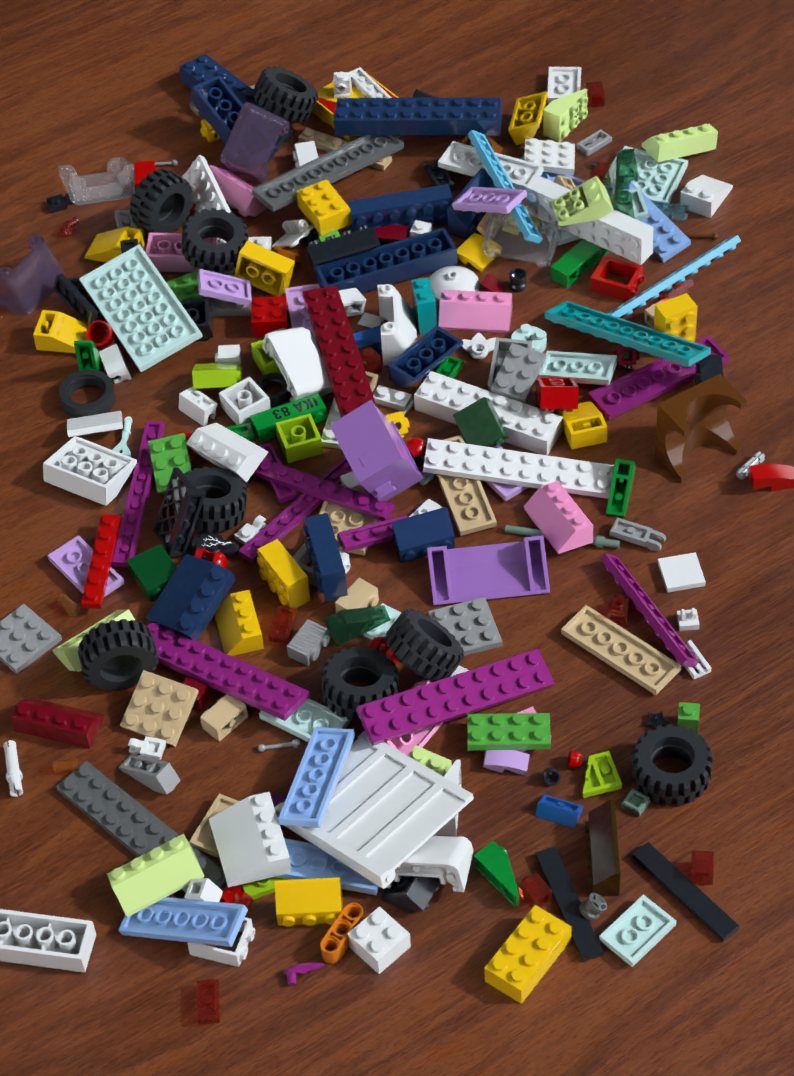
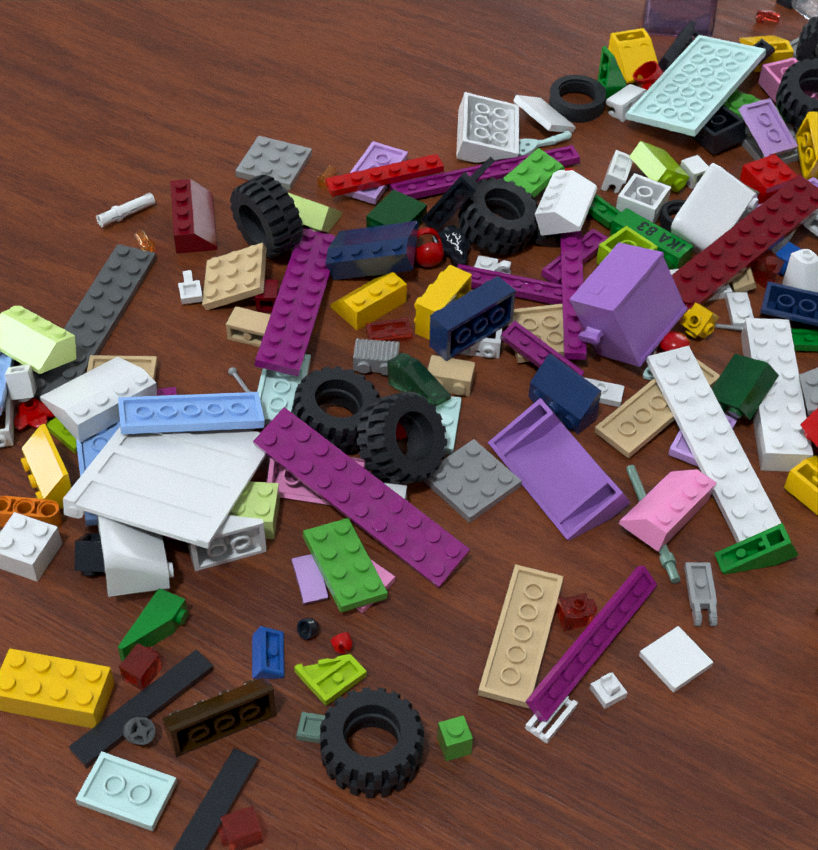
camera: 60 degrees right, 0 degrees up
(151, 772) = (158, 301): light grey slope -> none
(656, 720) = (441, 709): black piece -> none

